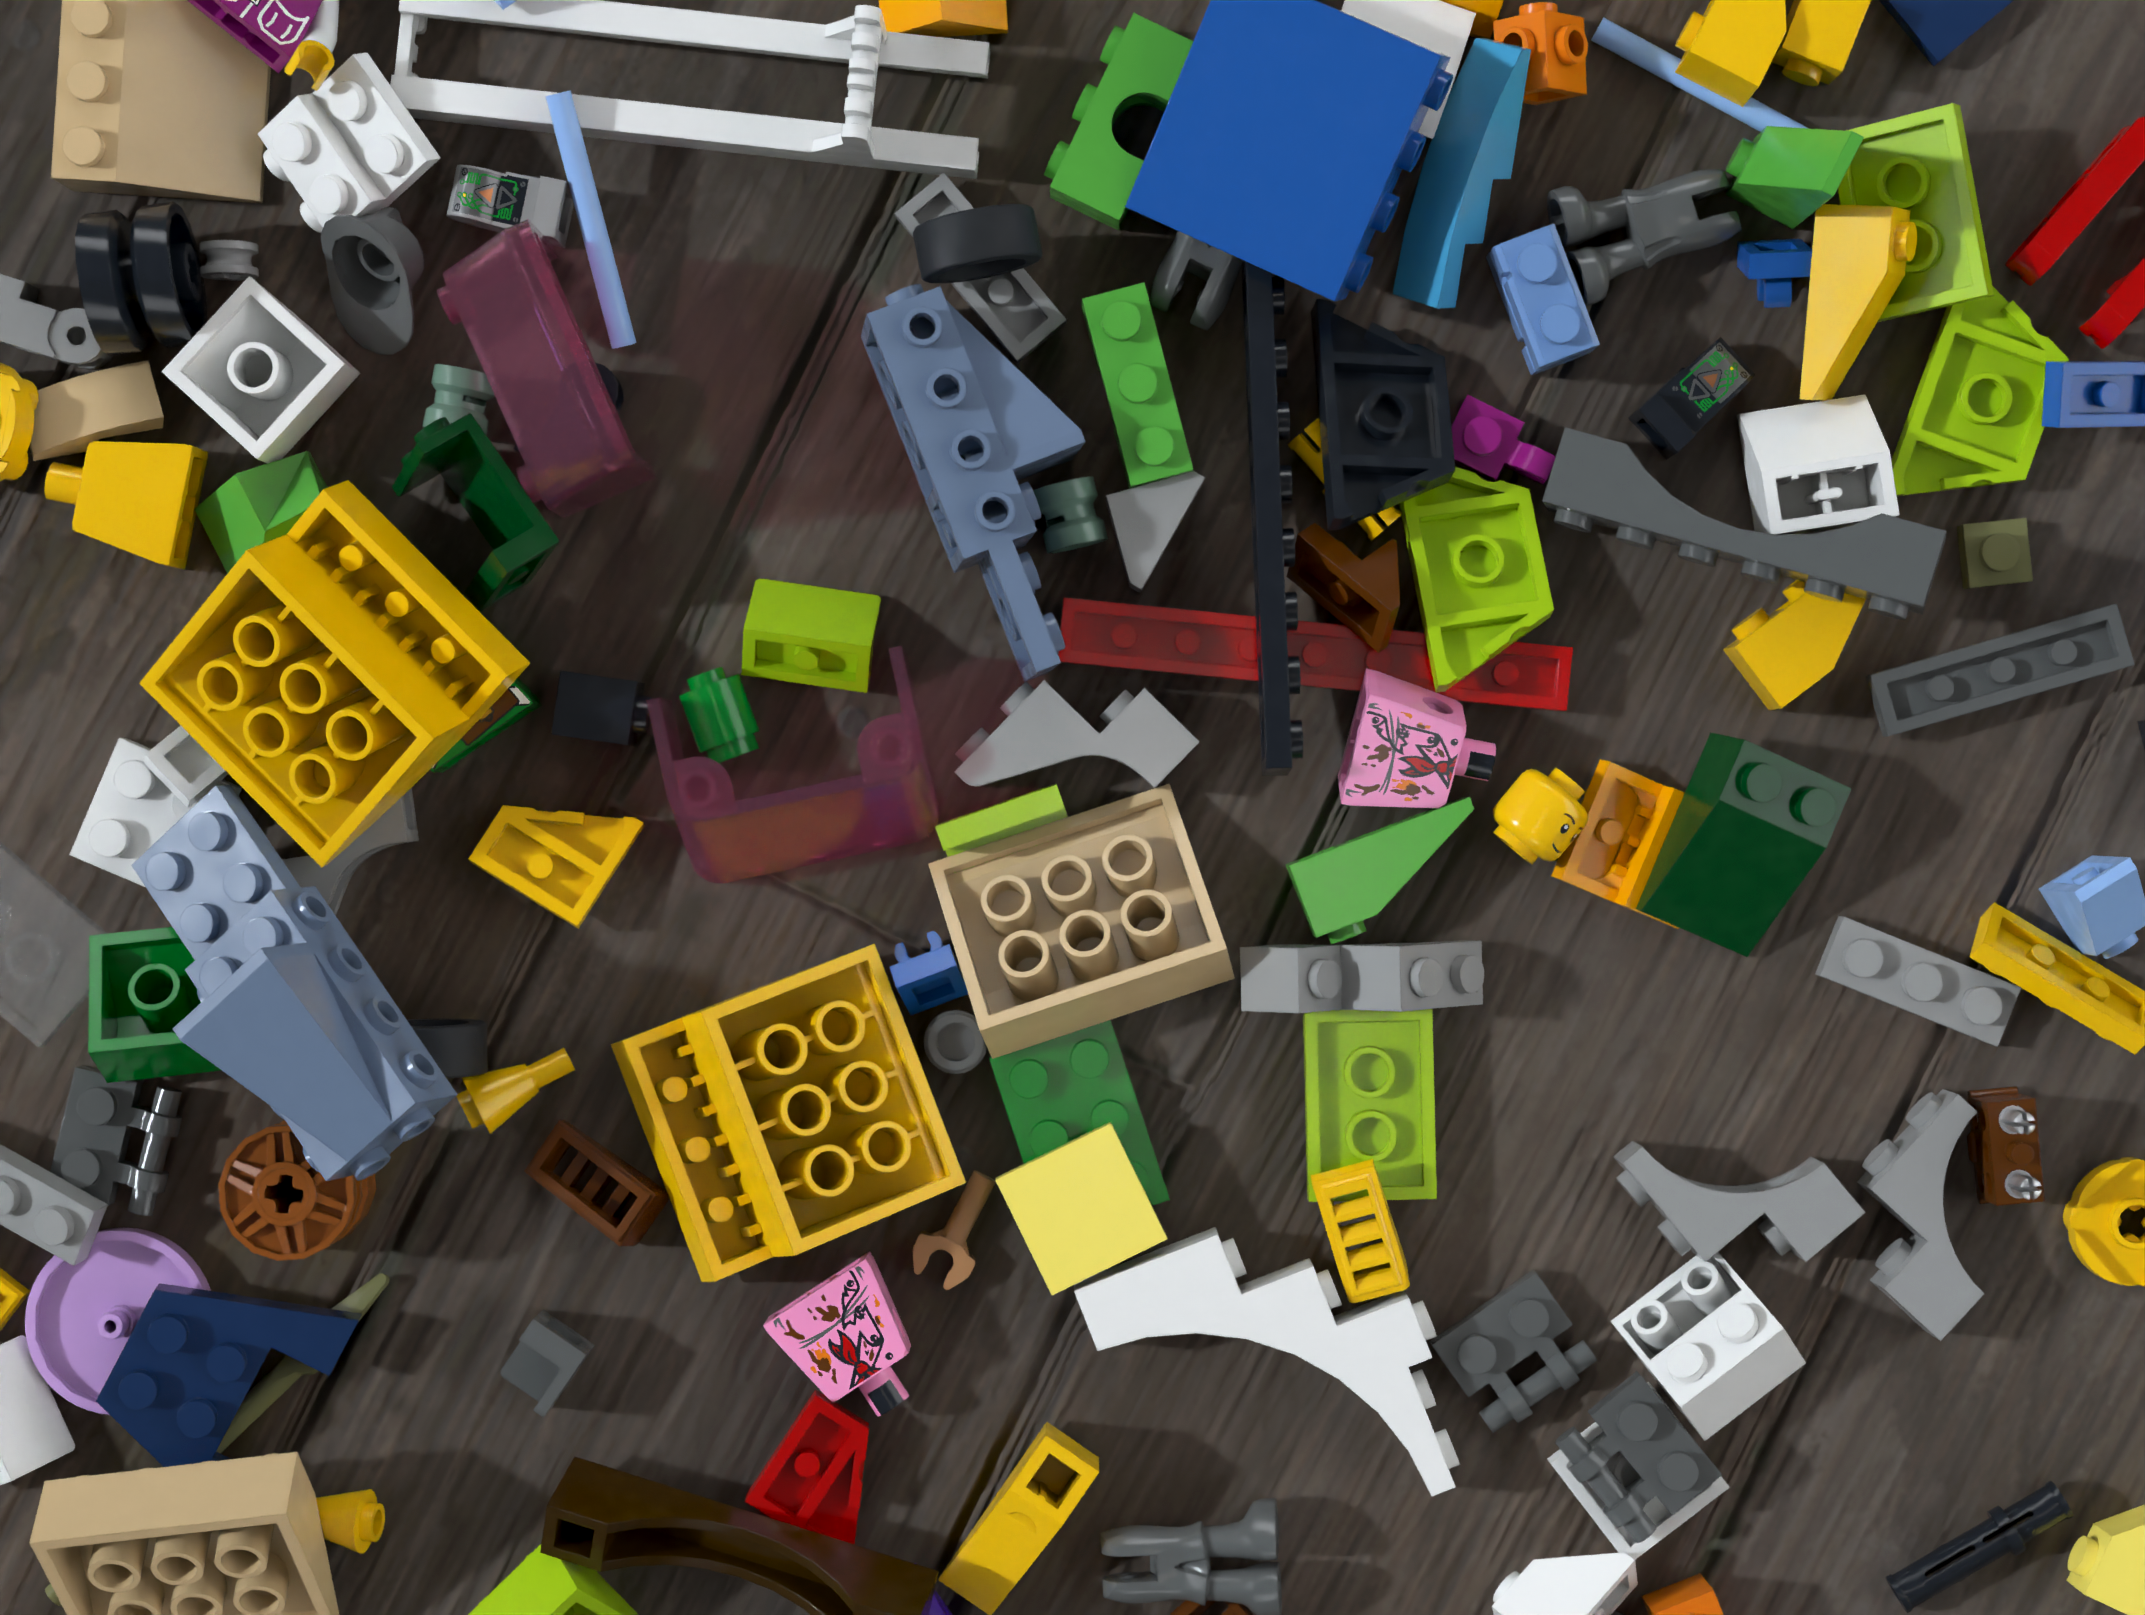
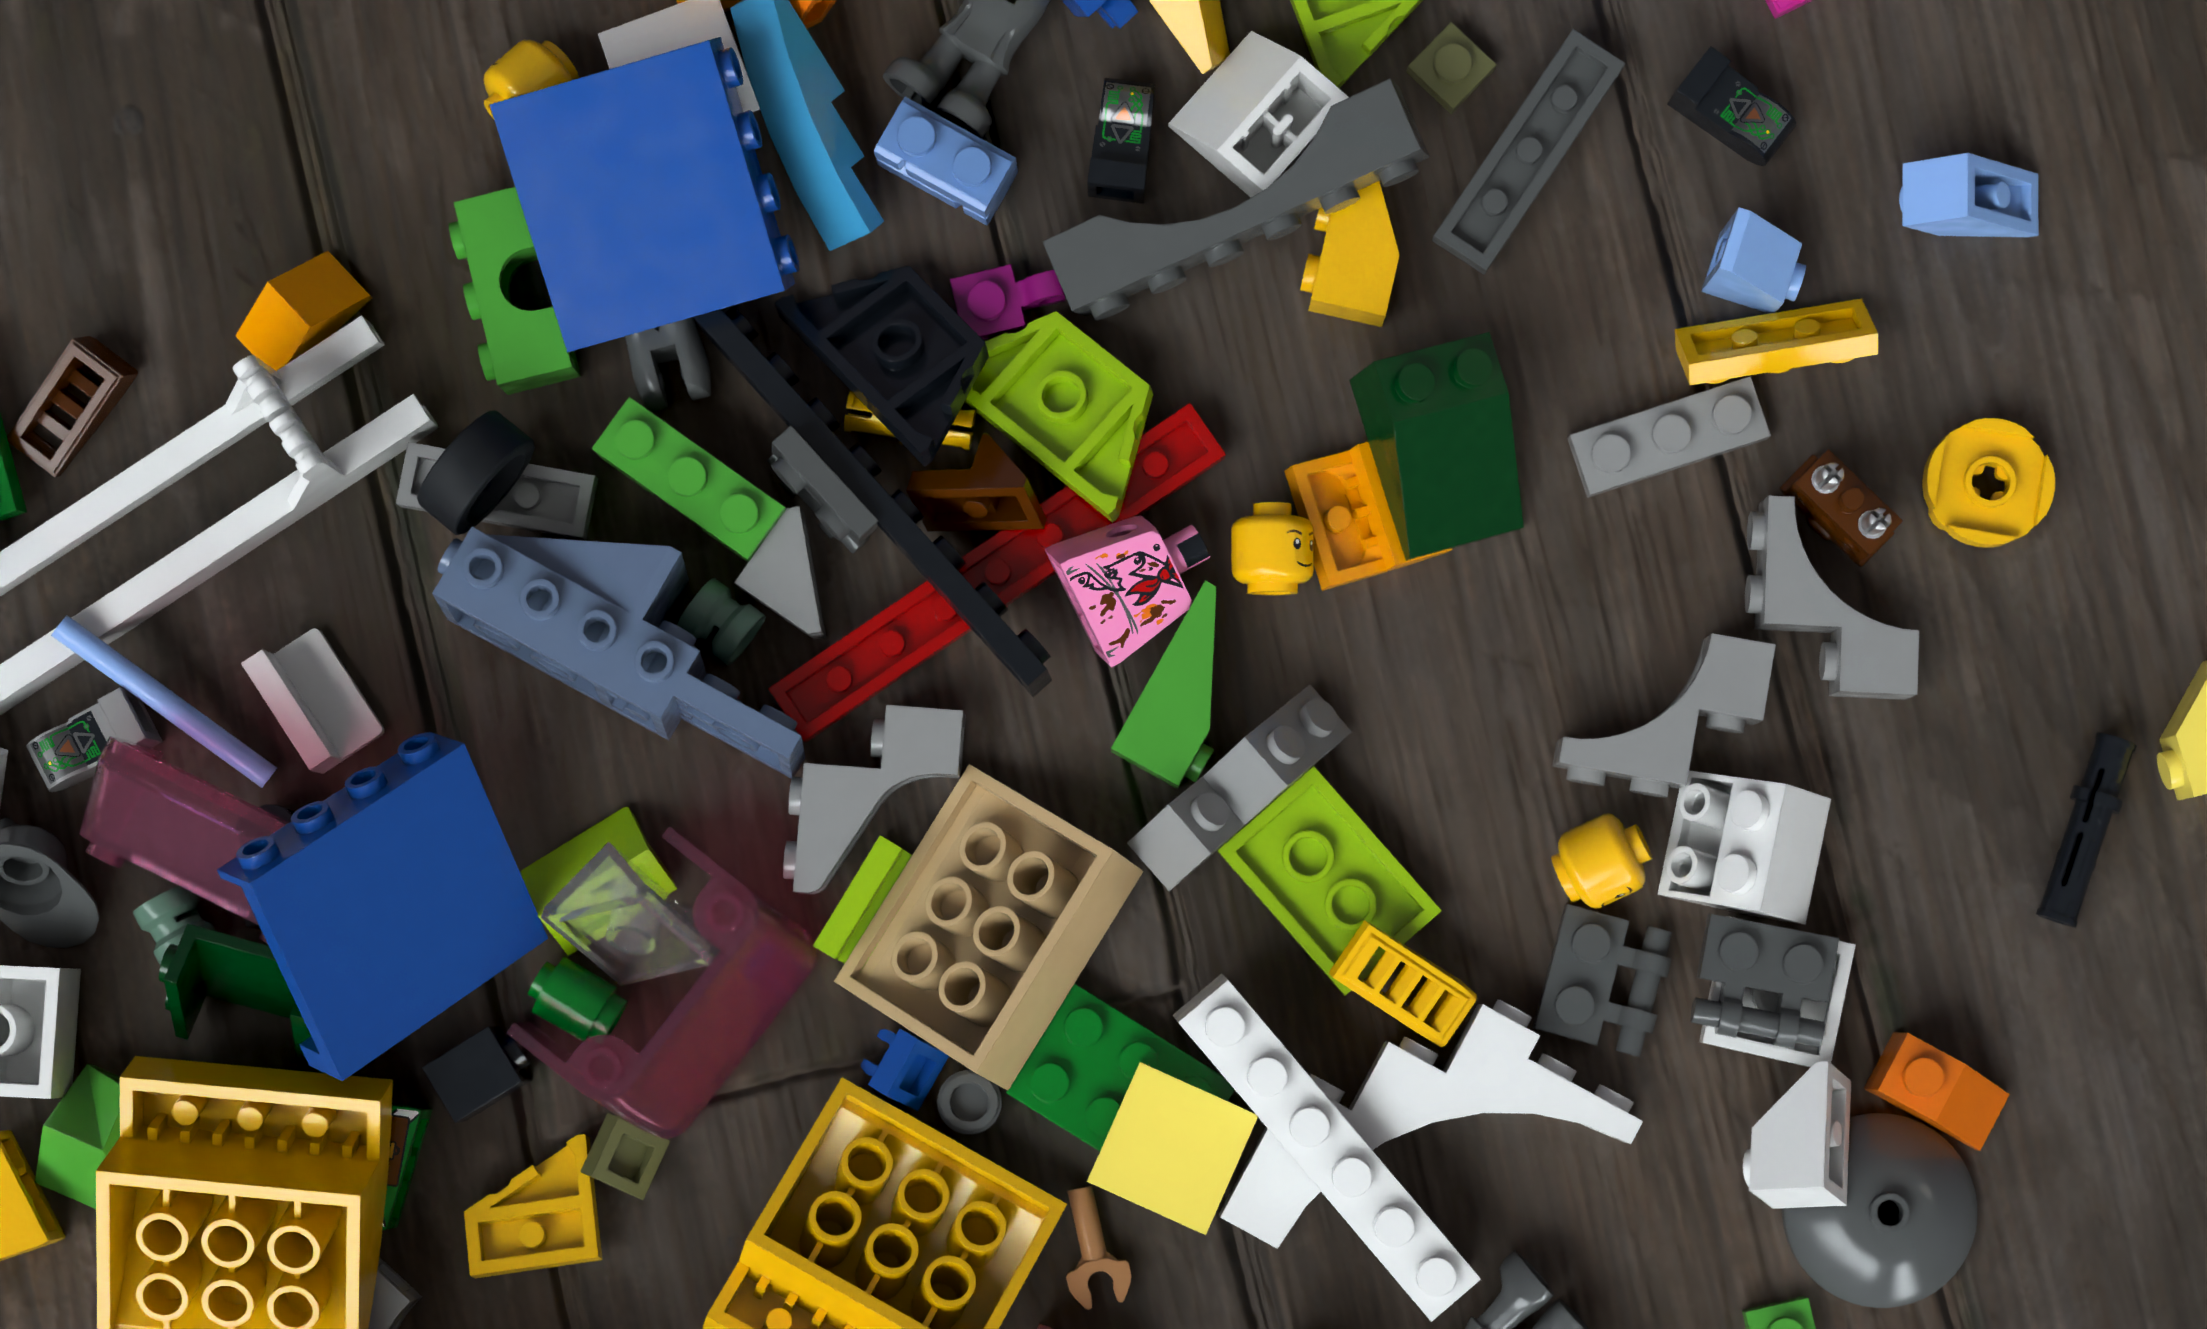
camera: 35 degrees left, 5 degrees down
(638, 525) = (388, 901): none -> blue panel
(659, 865) = (624, 1156): none -> olive plate
(707, 314) = (314, 700): none -> white panel
(808, 689) = (626, 921): none -> clear slope
(1199, 1305) = (1326, 1147): none -> white arch
(1232, 479) = (833, 503): none -> dark grey plate
(1590, 1262) = (1601, 861): none -> yellow head

